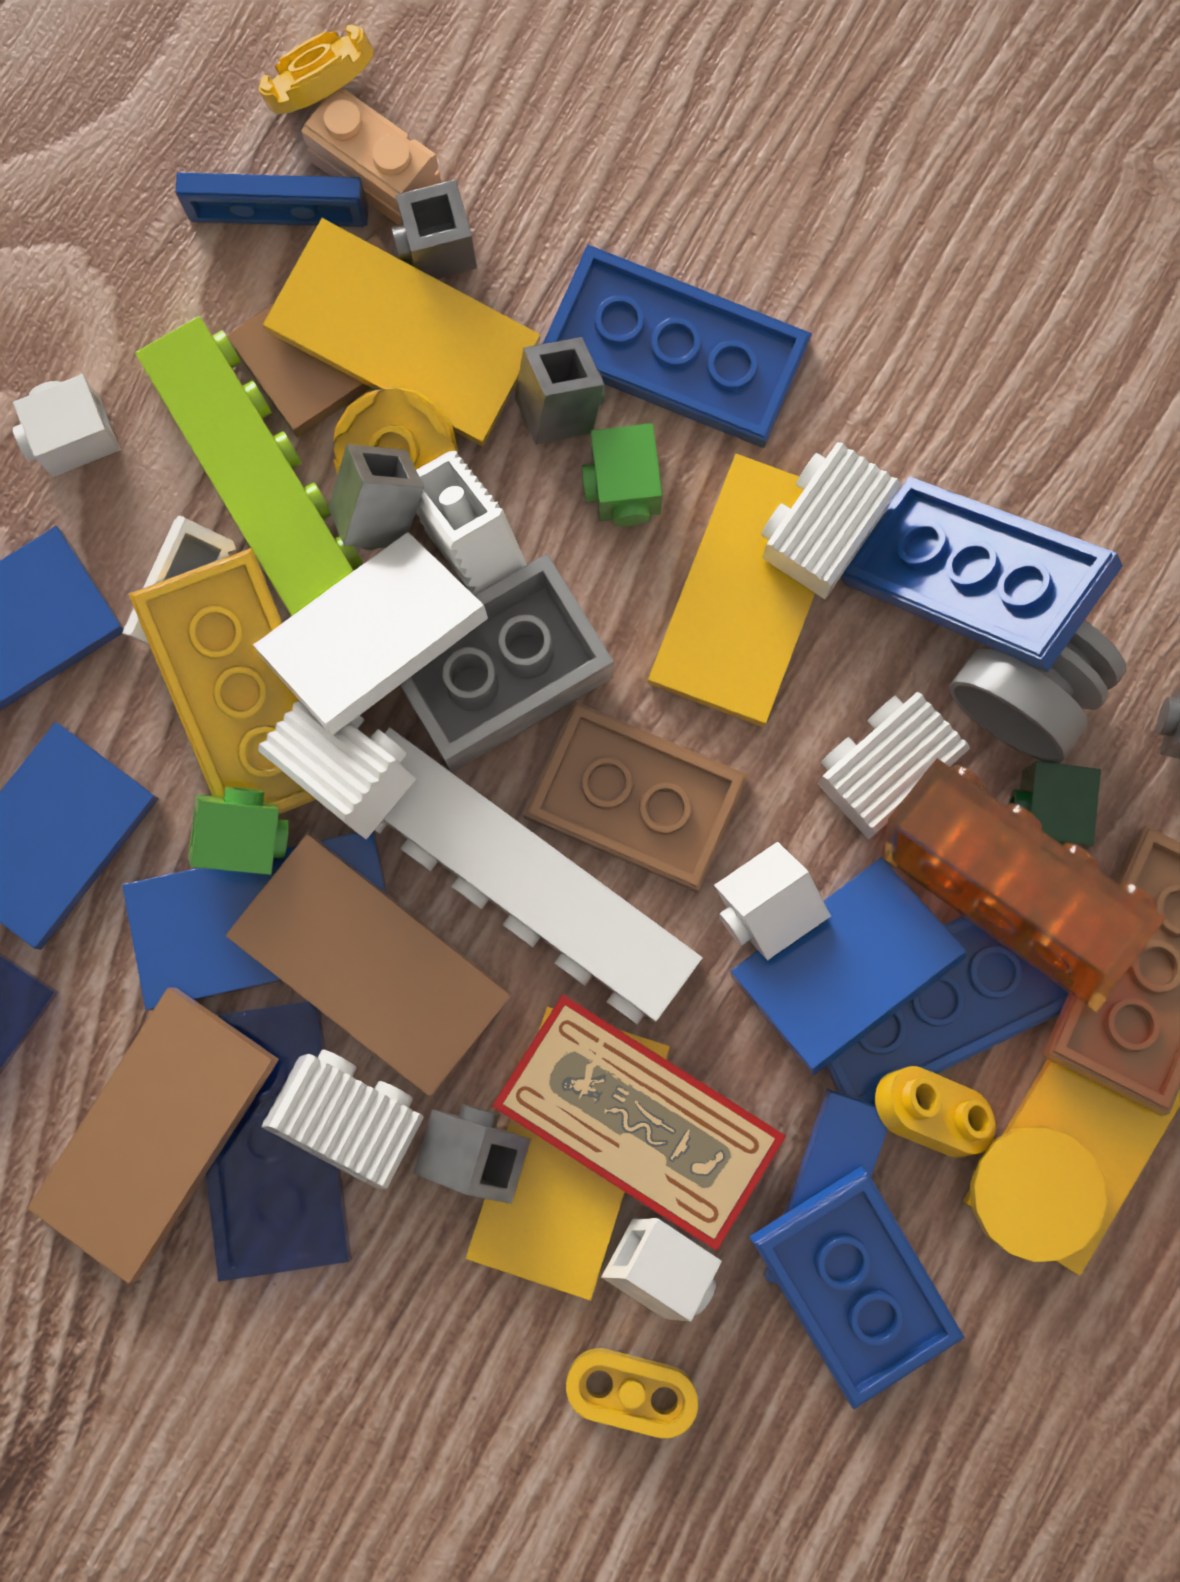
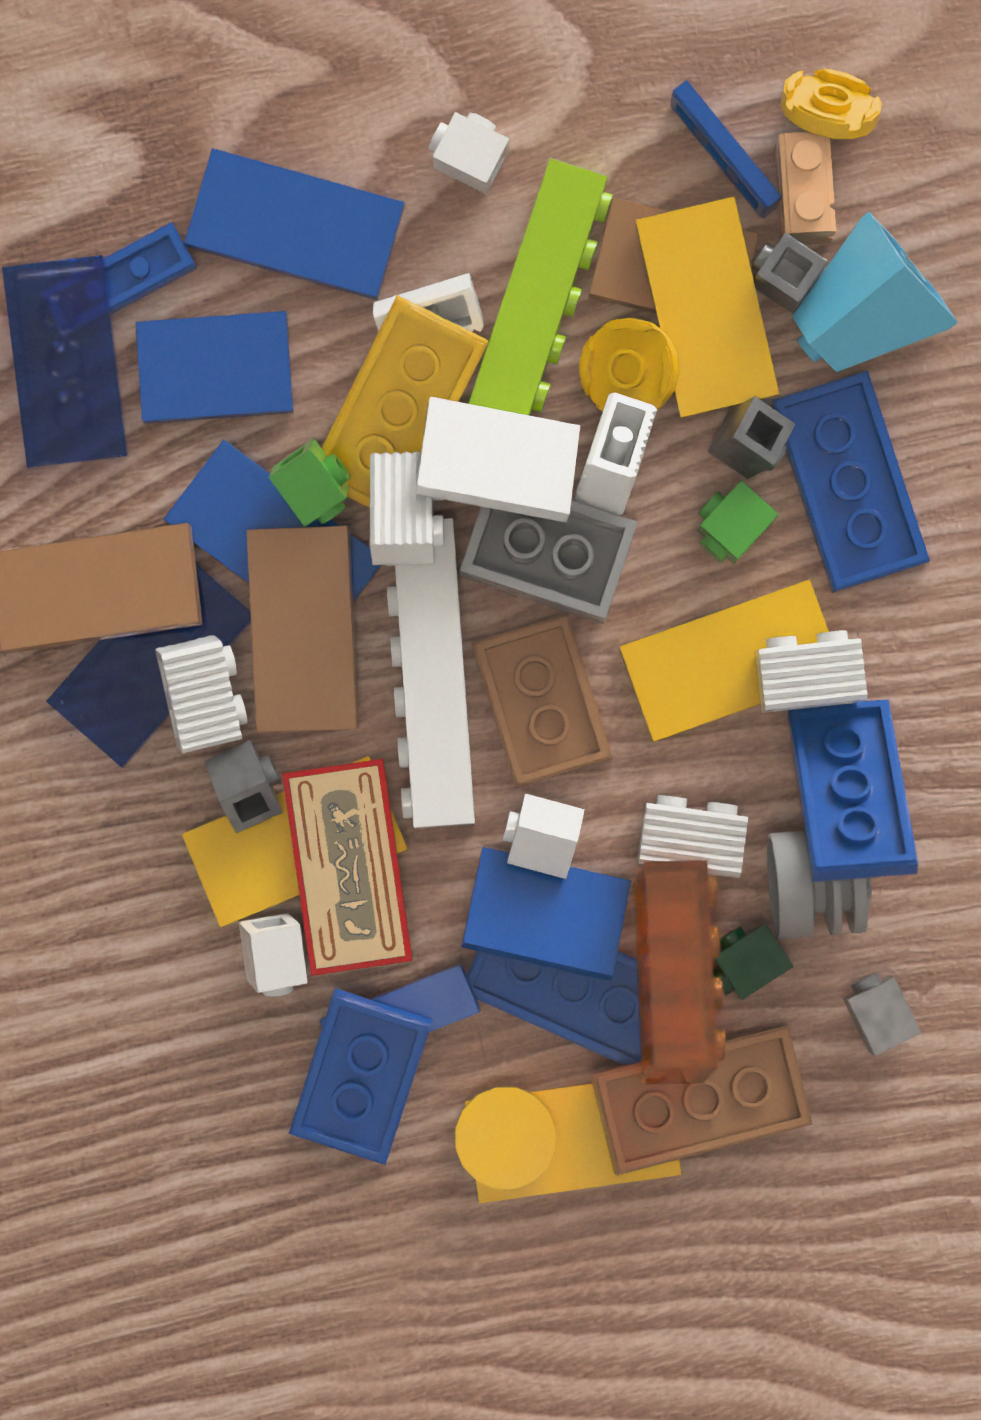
camera: 50 degrees right, 5 degrees up
(374, 496) = (584, 387): flat silver brick -> none
(526, 182) = (869, 301): none -> medium azure slope
(629, 1398) = (186, 997): yellow plate -> none
(946, 1120) = (504, 1042): yellow plate -> none

